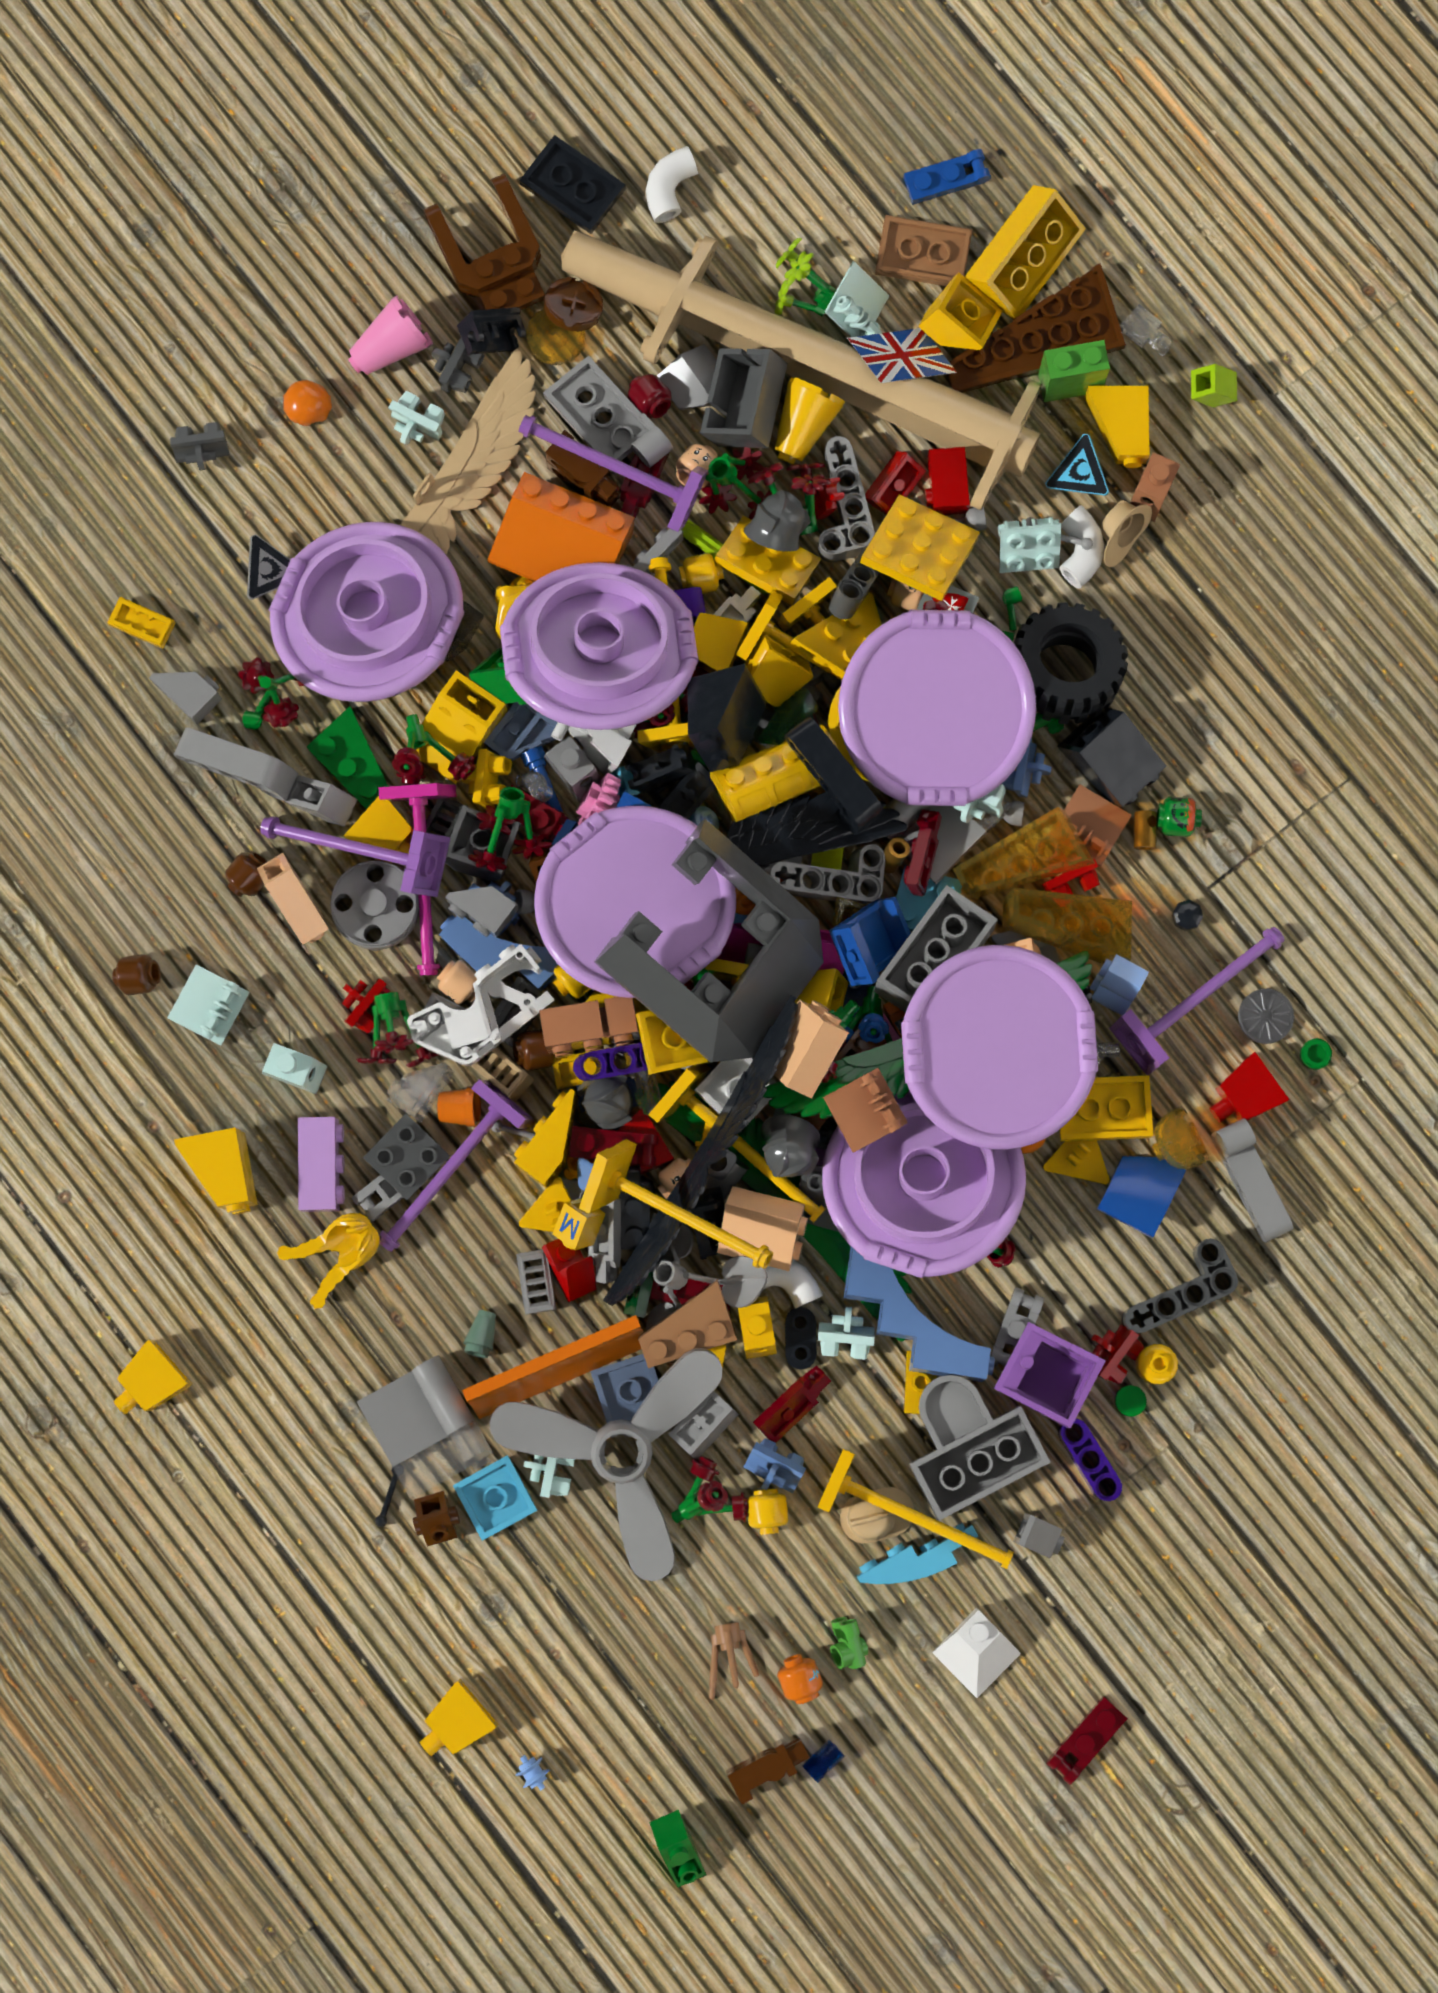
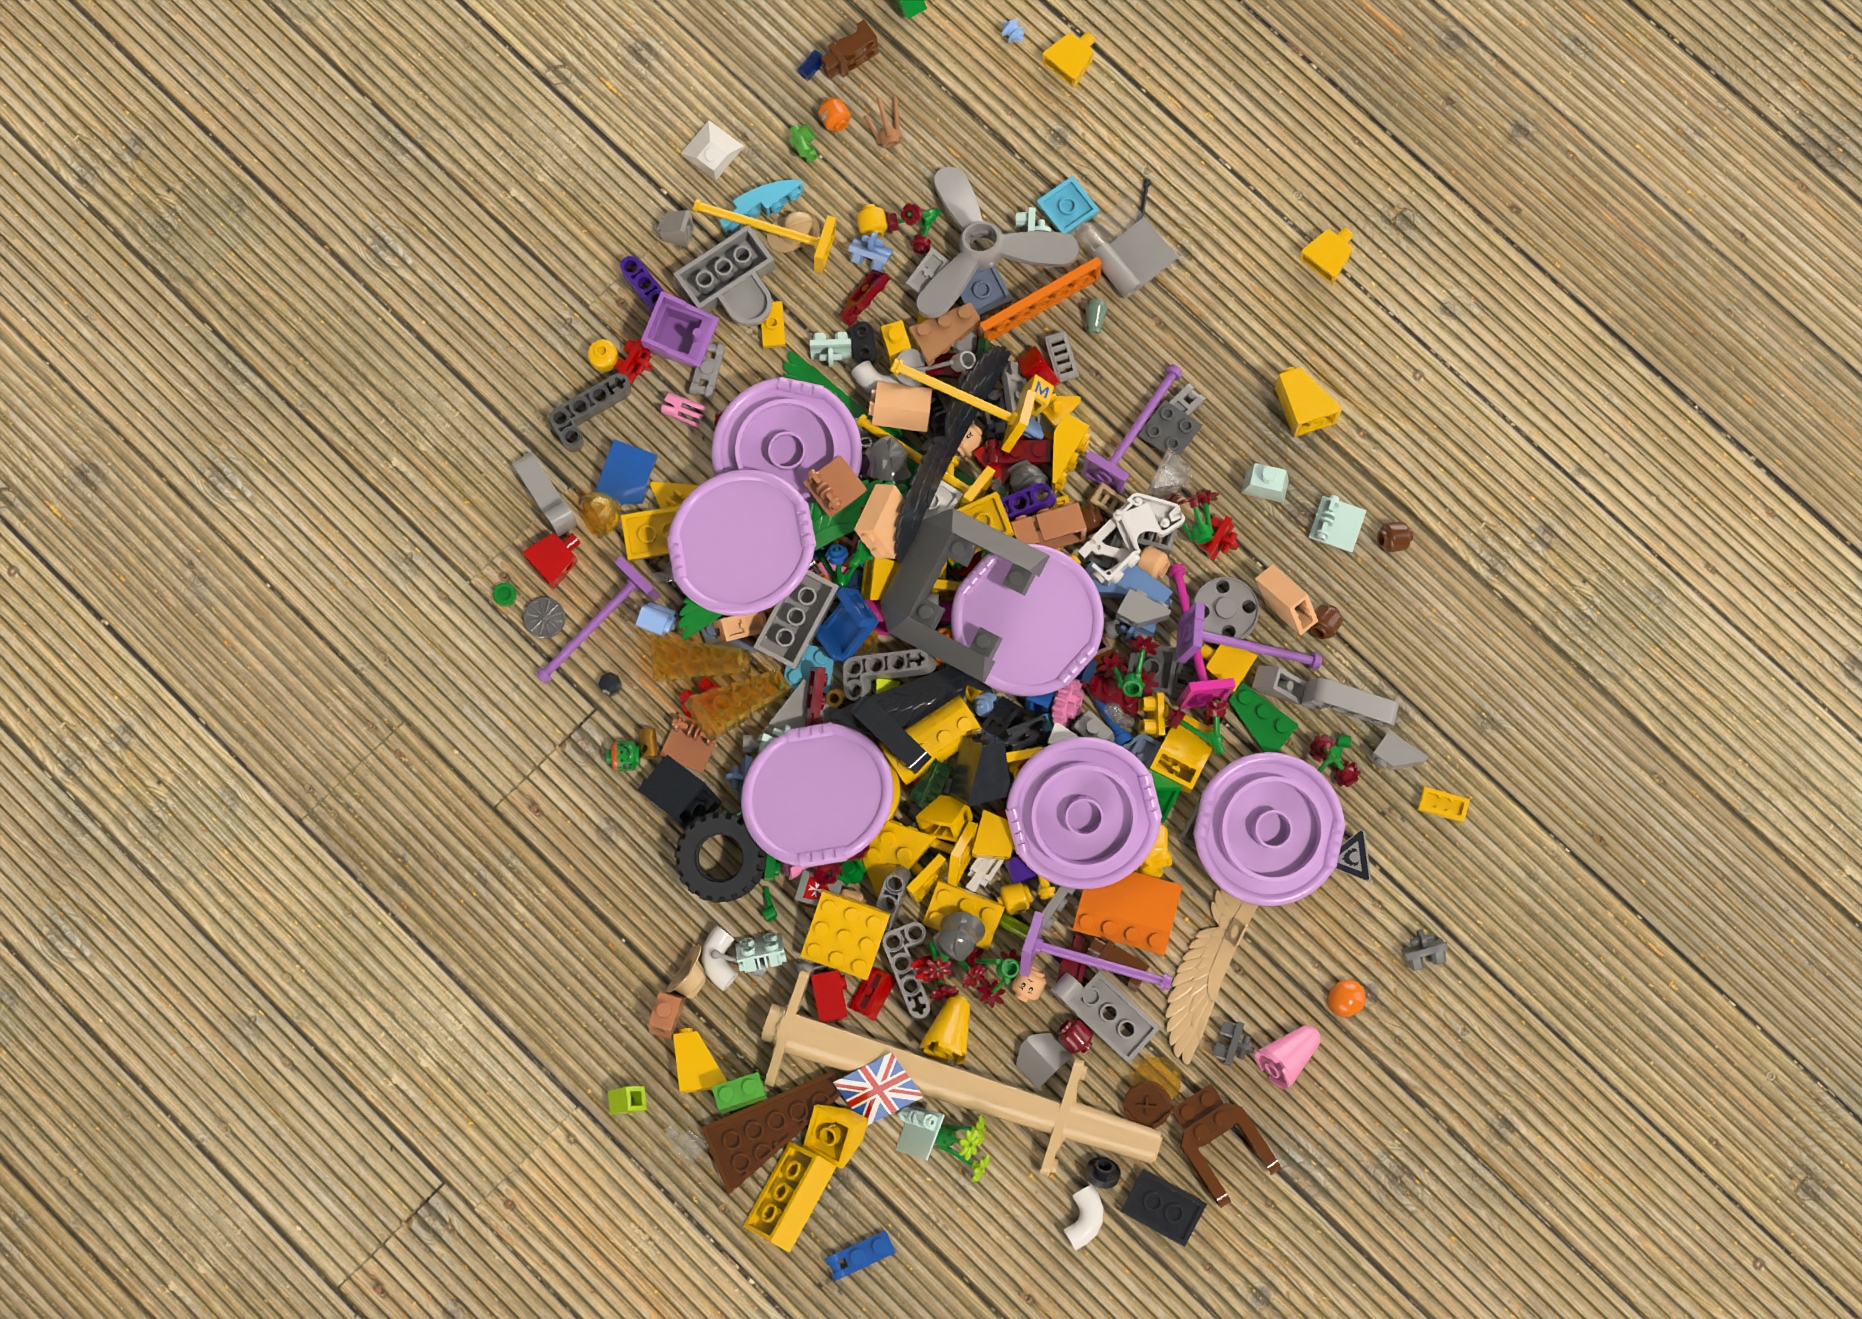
camera: 170 degrees right, 5 degrees down
(320, 1164) = (1233, 418): lavender brick -> none
(351, 1237) = (1196, 363): yellow hair -> none
(405, 412) = (1247, 991): light aqua hips -> none
(435, 1518) = (1107, 184): reddish brown brick -> none
(459, 1107) = (1139, 471): orange piece -> none
(491, 330) = (1208, 1069): black hinge -> none
(640, 231) = (1102, 1172): none -> black plate
(746, 397) = (993, 1043): dark grey piece -> none
(922, 250) = (872, 1189): medium nougat tile -> none
(932, 1347) = (766, 343): medium blue arch -> none
(1055, 1275) = (679, 403): none -> bright pink arm
(1080, 471) = (726, 1018): black piece -> none
(1087, 1739) = (628, 103): dark red plate -> none
(1130, 1400) = (619, 331): green tile -> none

